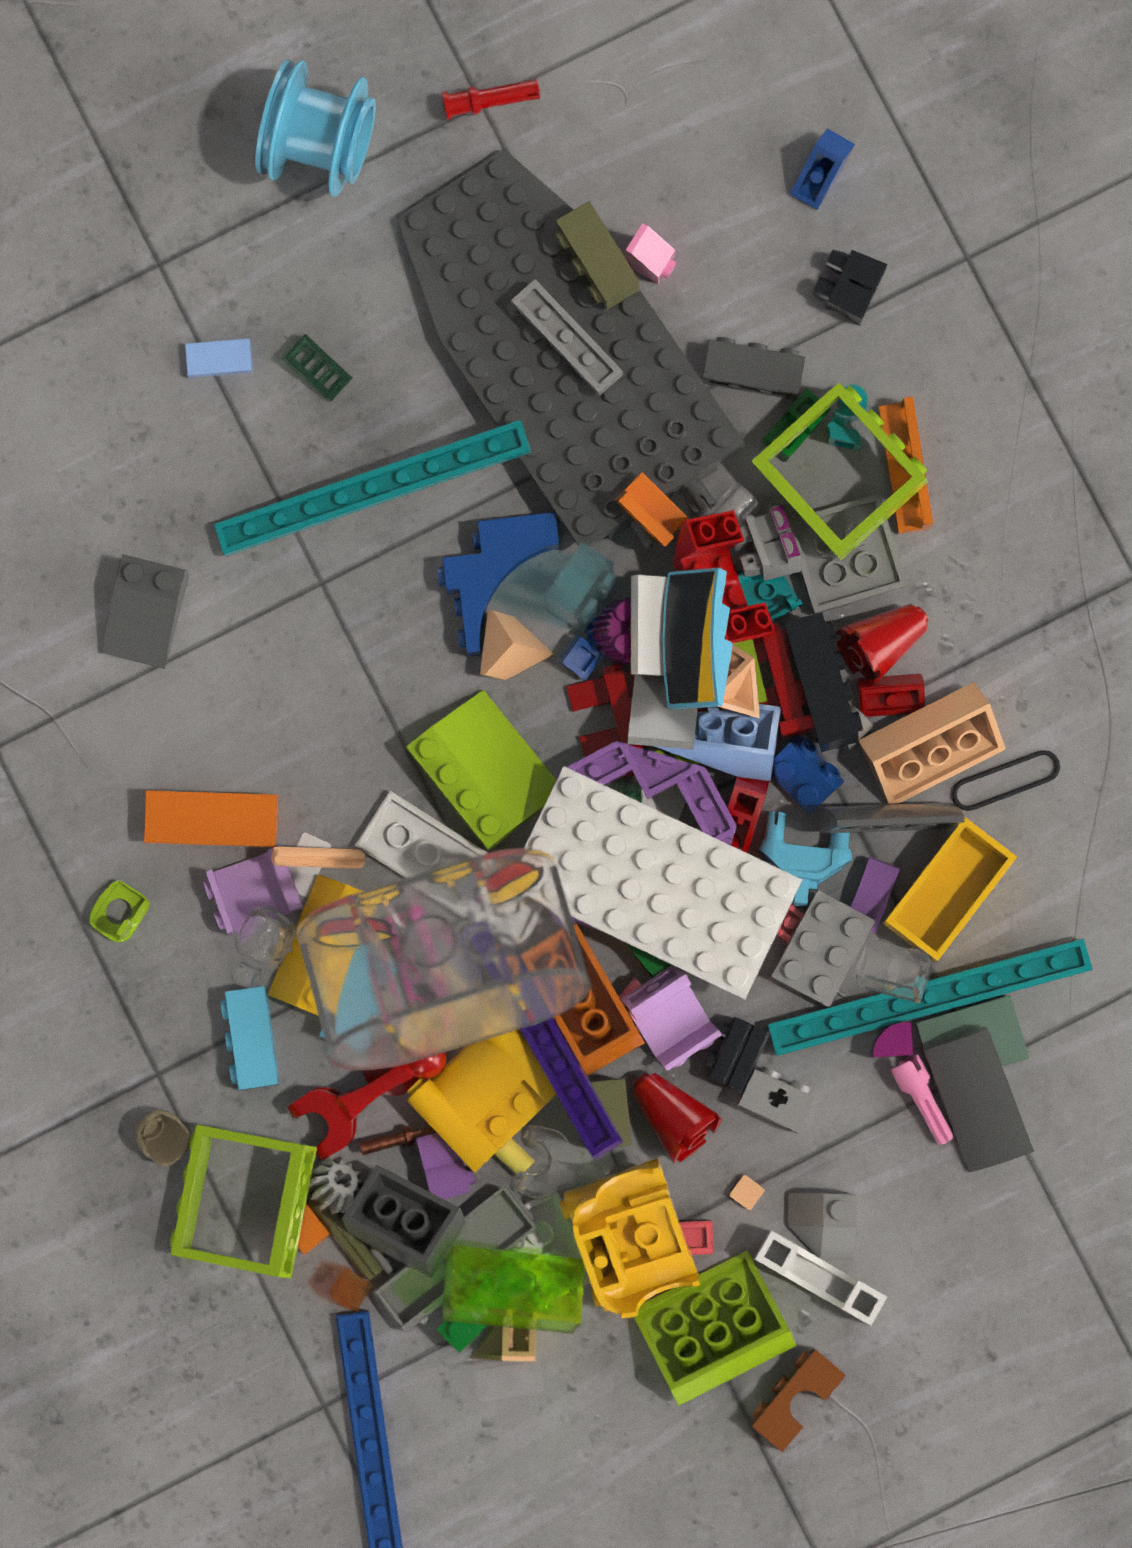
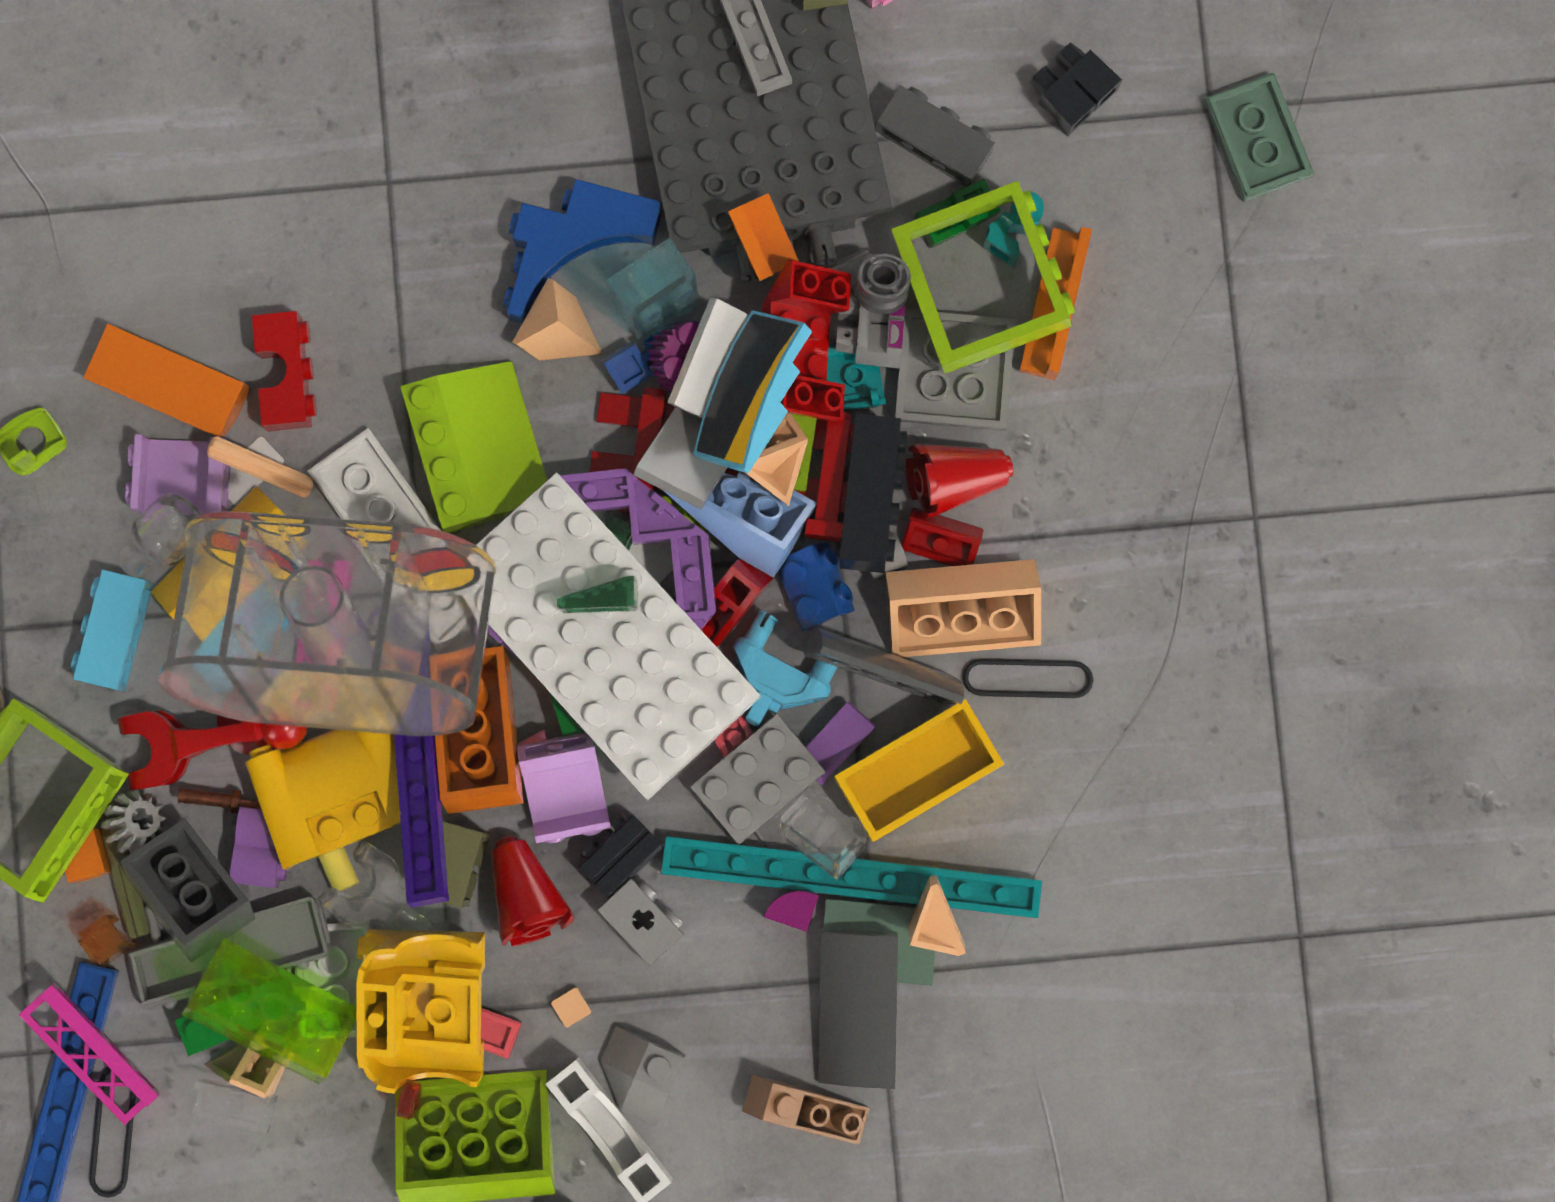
camera: 20 degrees right, 0 degrees up
(144, 611) = (188, 135): dark grey slope -> none
(291, 745) = (289, 402): none -> red arch
(373, 488) = (480, 100): teal plate -> none
(383, 1373) = (99, 1043): none -> dark pink fence
(431, 1435) = (96, 1142): none -> black piece
(647, 851) = (613, 596): none -> clear green slope
(650, 1316) = (409, 1099): none -> clear red tile
(761, 495) = (884, 269): none -> flat silver wheel
(913, 1079) = (797, 957): bright pink piece -> none
(968, 1198) = (805, 1109): none -> medium nougat slope
(1010, 1007) = (933, 922): none -> light nougat slope
(1015, 265) = (1259, 137): none -> sand green tile

